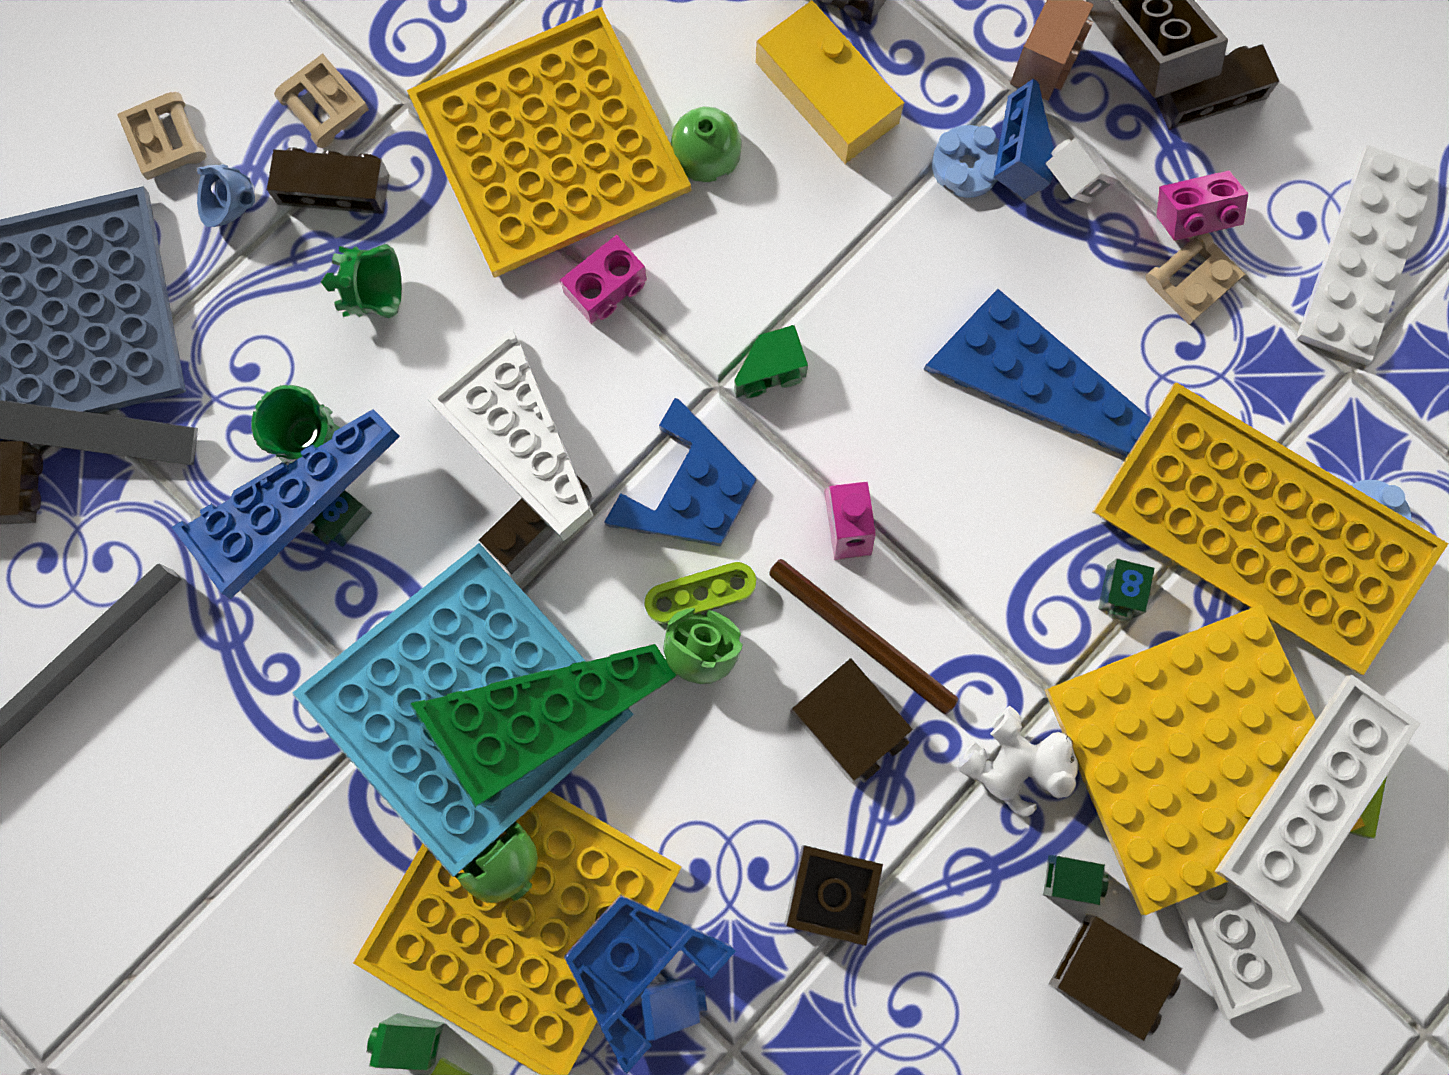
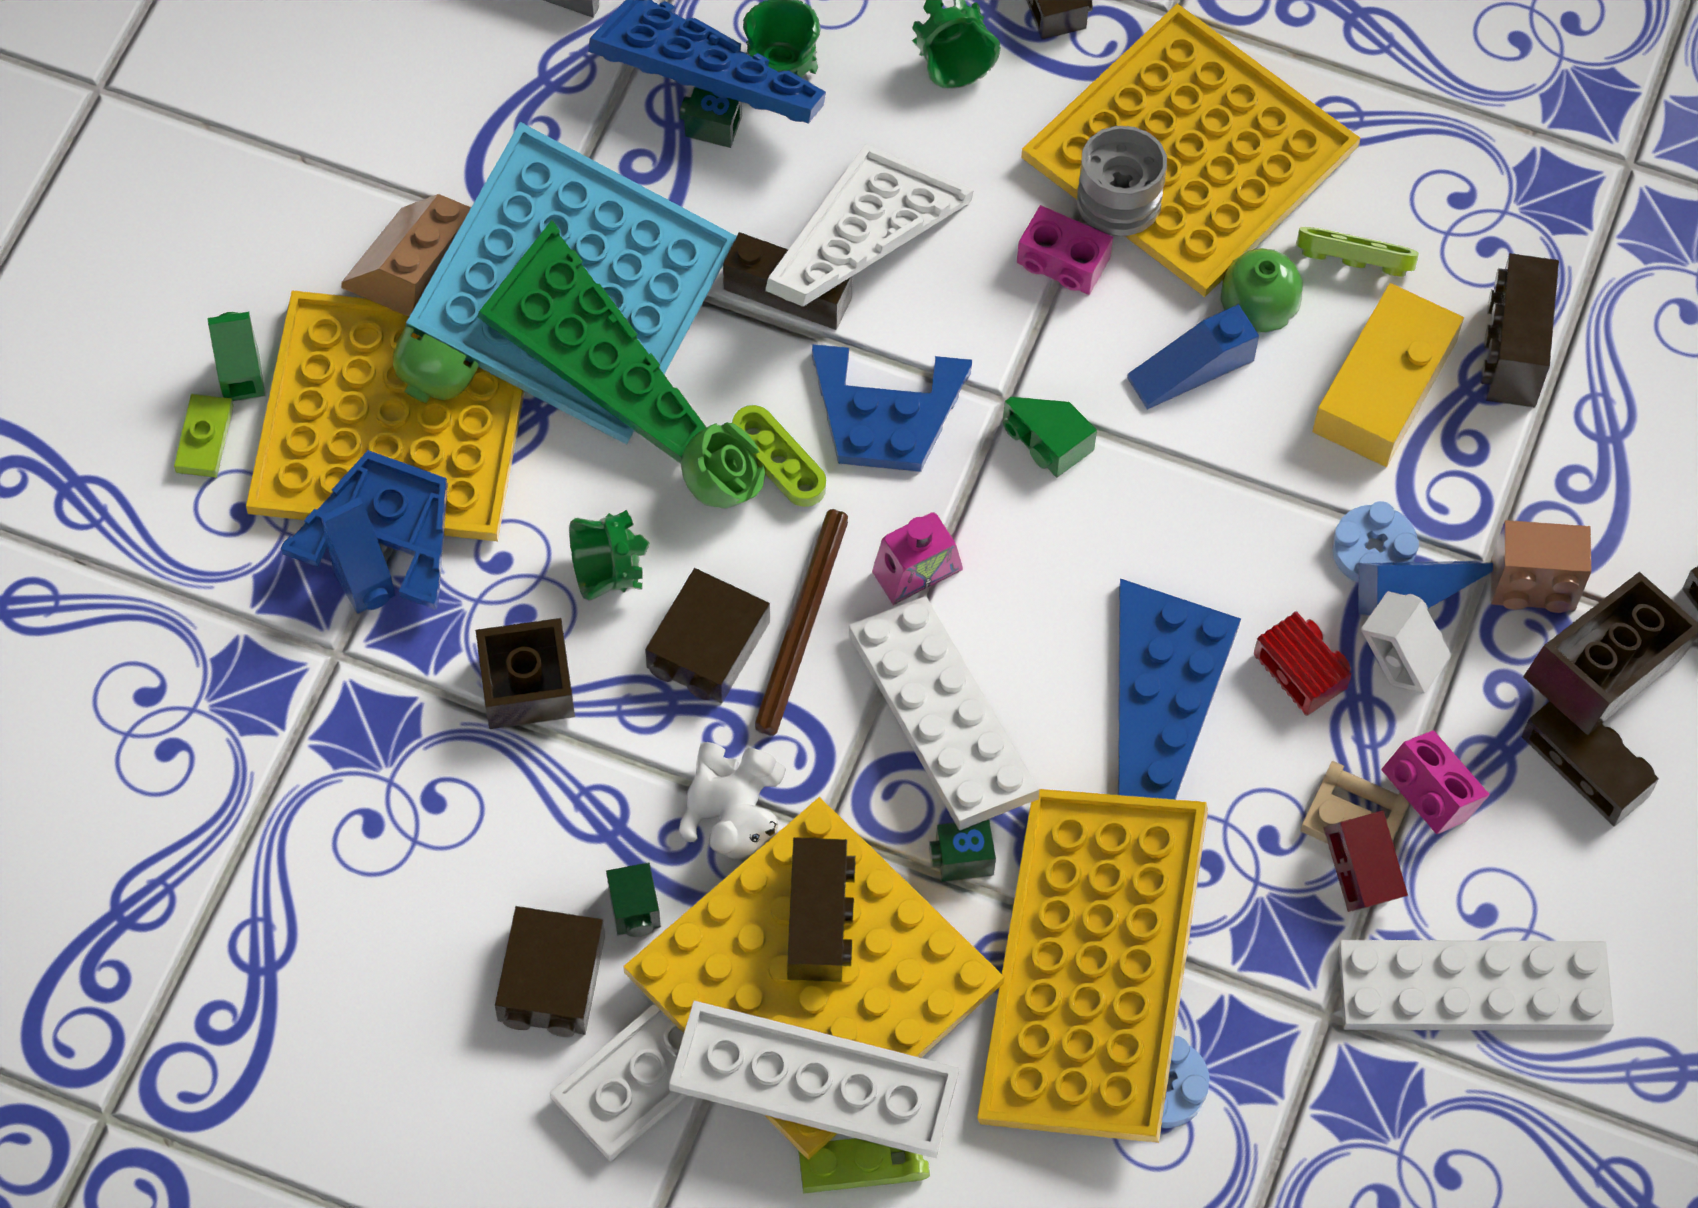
camera: 65 degrees right, 15 degrees down
(365, 840) = (407, 253): none -> medium nougat slope
(571, 184) = (1121, 180): none -> light grey wheel
(702, 56) = (1356, 250): none -> lime plate
(748, 779) = (606, 554): none -> green hair
(749, 221) = (1196, 357): none -> blue slope
(1001, 555) = (943, 713): none -> white plate
(1057, 257) = (1303, 662): none -> red brick
(1170, 732) = (819, 909): none -> dark brown brick
(1251, 286) = (1365, 861): none -> dark red hinge

